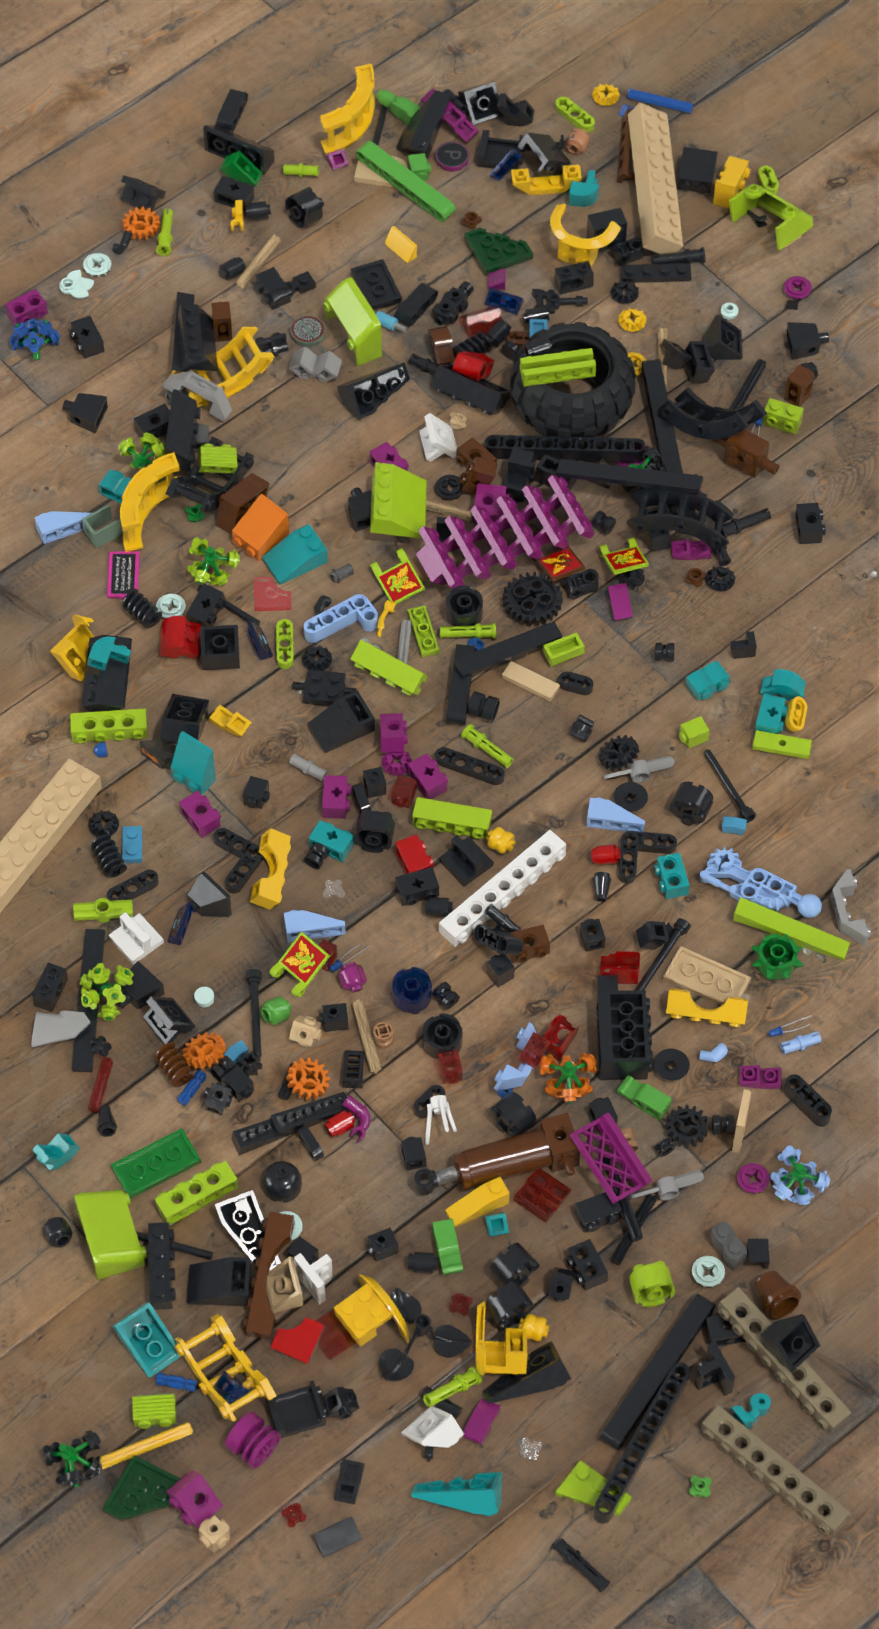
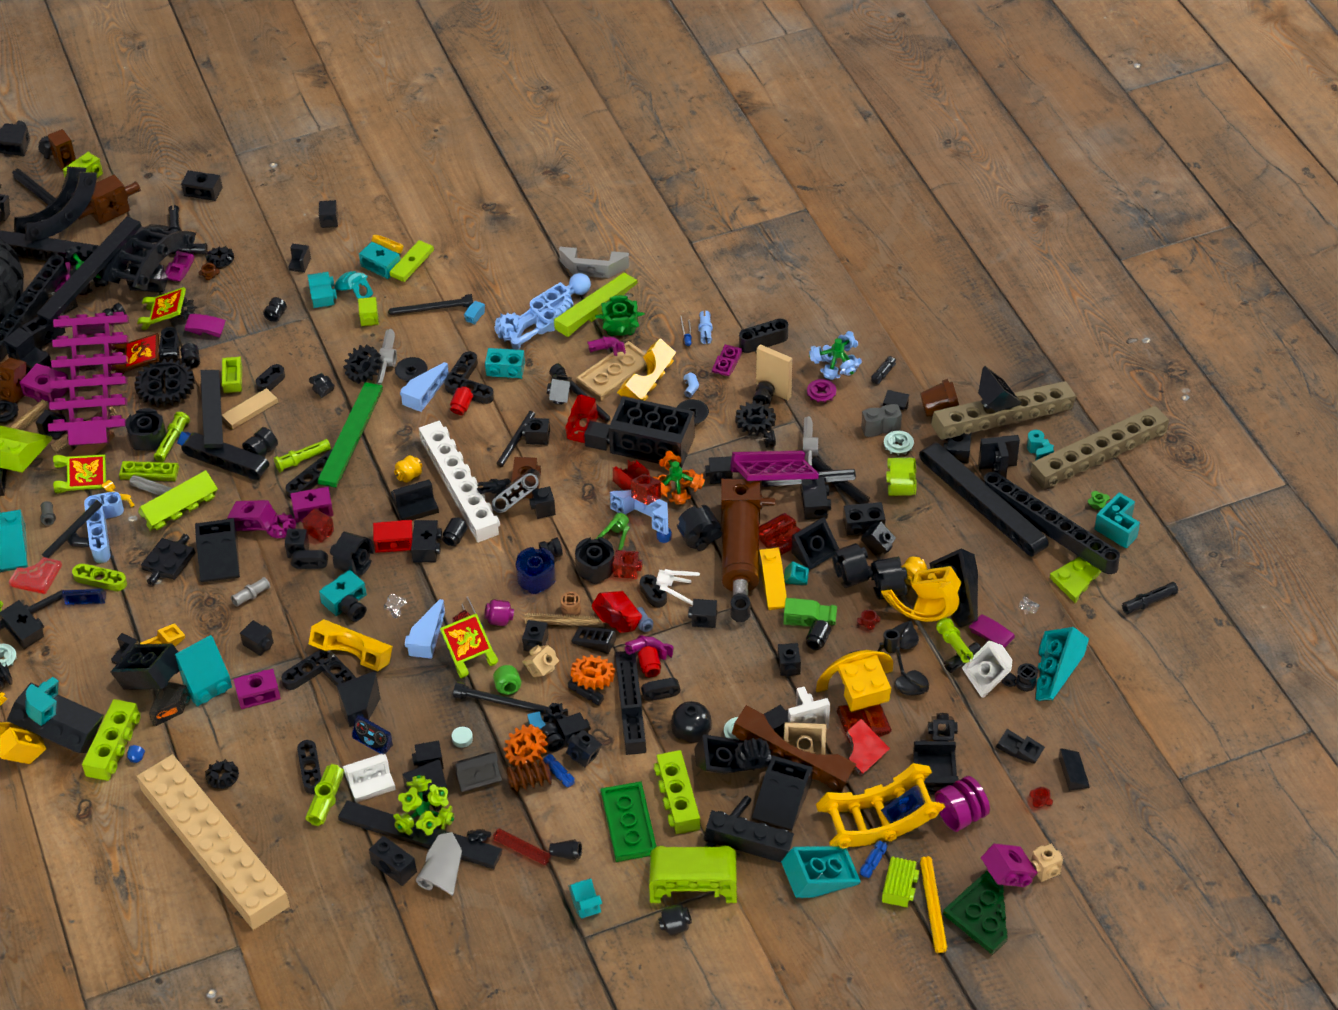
camera: 70 degrees left, 10 degrees down
(76, 1452) = (926, 957): black plant -> none
(108, 856) = (266, 775): black piece -> none
(132, 844) = (259, 755): dark azure plate -> none
(170, 976) = (427, 753): none -> black brick
(179, 638) = (43, 656): red brick -> none
(213, 696) = (125, 643): none -> black panel
(220, 647) = (76, 623): black brick -> none
(243, 1239) = (753, 754): none -> black gear
(322, 663) = (131, 562): black gear -> none
(323, 599) = (72, 529): none -> black bar
(335, 797) = (295, 578): magenta brick -> none
(386, 1075) = (610, 607): none -> red piece
(388, 1103) = (645, 623): none -> sand blue pin
(434, 1471) = (1026, 677): none -> black wheel
(451, 818) = (365, 497): lime brick -> none
(500, 1044) = (618, 524): none -> bright green plant
(525, 776) = (350, 435): none -> green tile
(535, 1228) = (814, 544): none -> black slope
(574, 605) = (190, 355): none -> black wheel
(577, 919) = (515, 439): none -> black bar
(601, 885) = (490, 413): black cone -> none
(645, 1097) = (716, 437): bright green piece -> none
(671, 1504) = (1117, 522): none -> teal brick
(691, 803) = (442, 327): black brick -> none
(728, 701) = (351, 280): none -> teal piece
(738, 956) = (607, 342): none -> magenta piece
(784, 683) = (354, 240): teal brick -> none
(807, 1230) = (883, 370): none -> black axle
(813, 647) = (328, 214): none -> black brick

